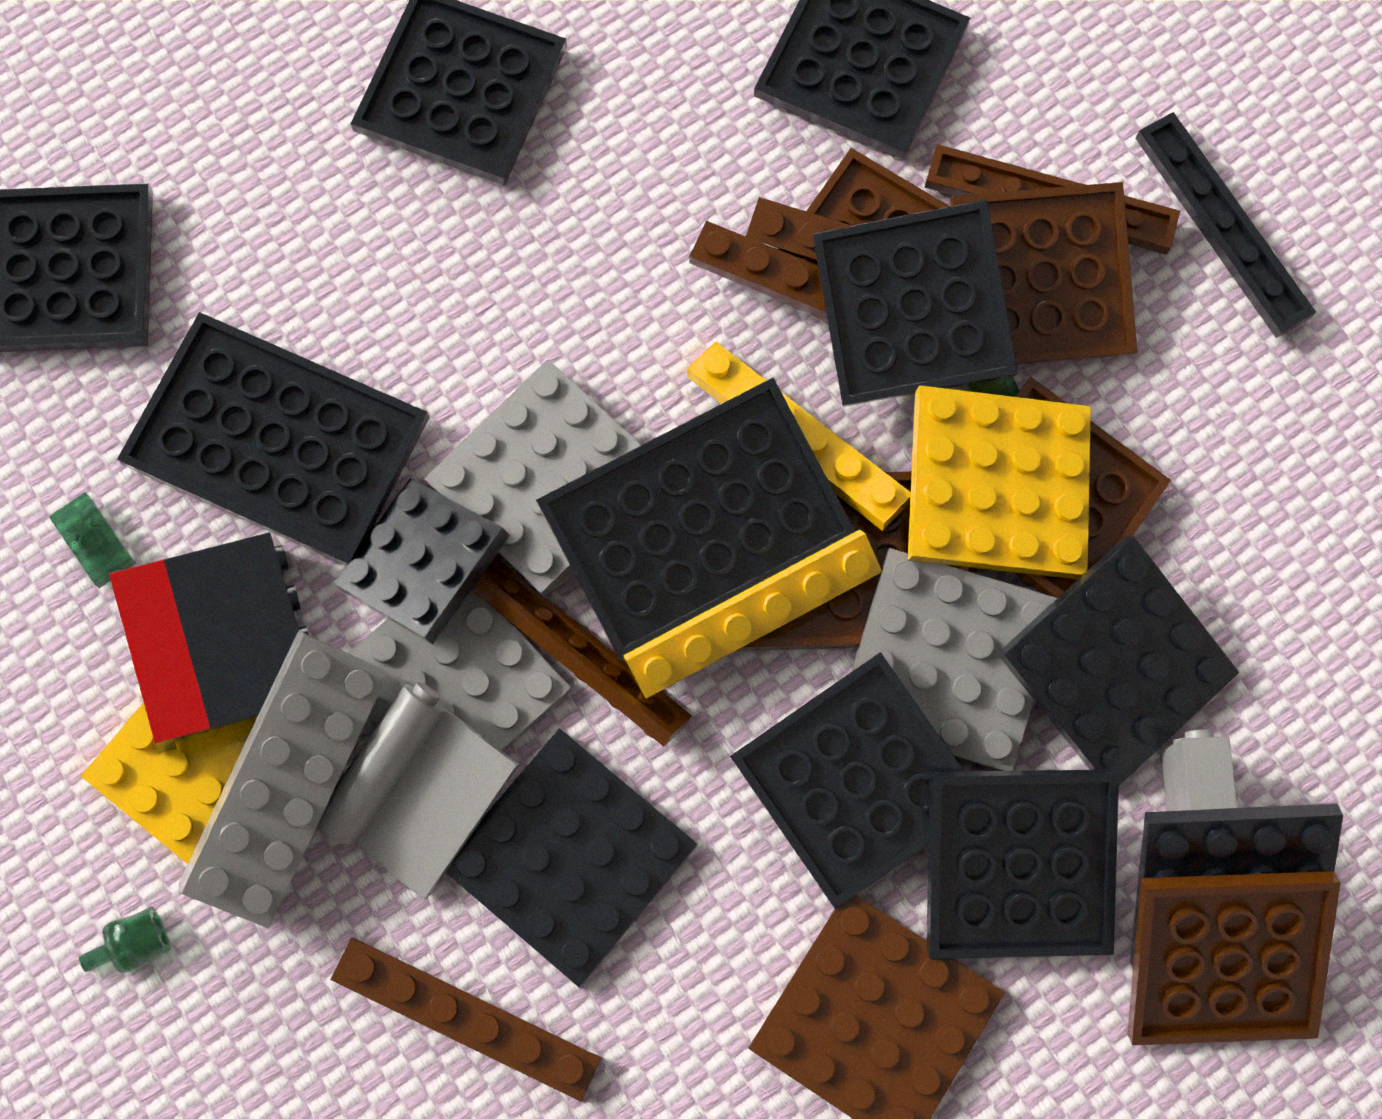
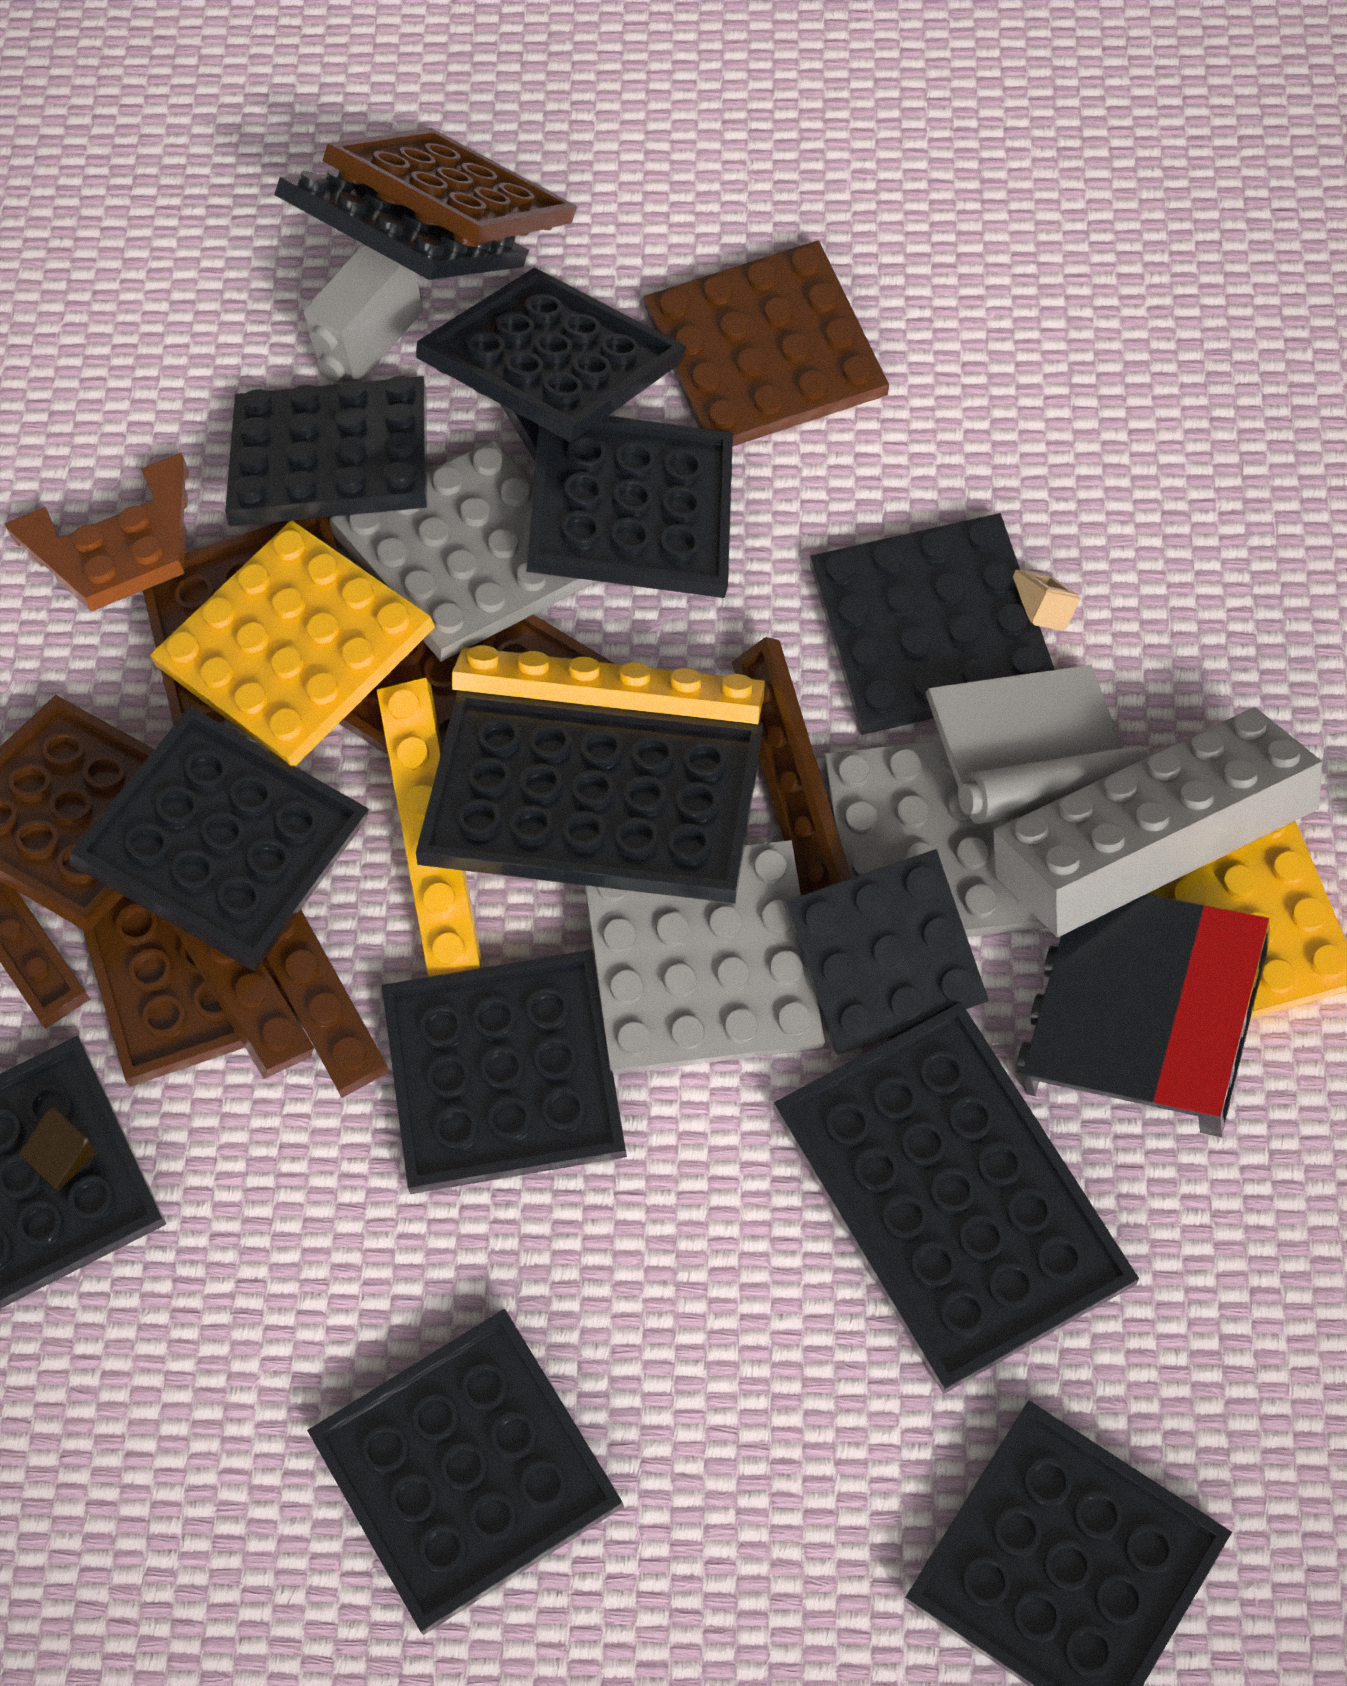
camera: 140 degrees left, 10 degrees down
(92, 539) = (1216, 1216): clear green plate -> none
(466, 1019) = (1120, 558): reddish brown plate -> none
(495, 932) = (1045, 599): none -> tan slope
(621, 317) = (502, 1072): none -> black plate
(849, 77) = (57, 1149): none -> dark brown slope
(1192, 481) = (122, 552): none -> dark orange wing

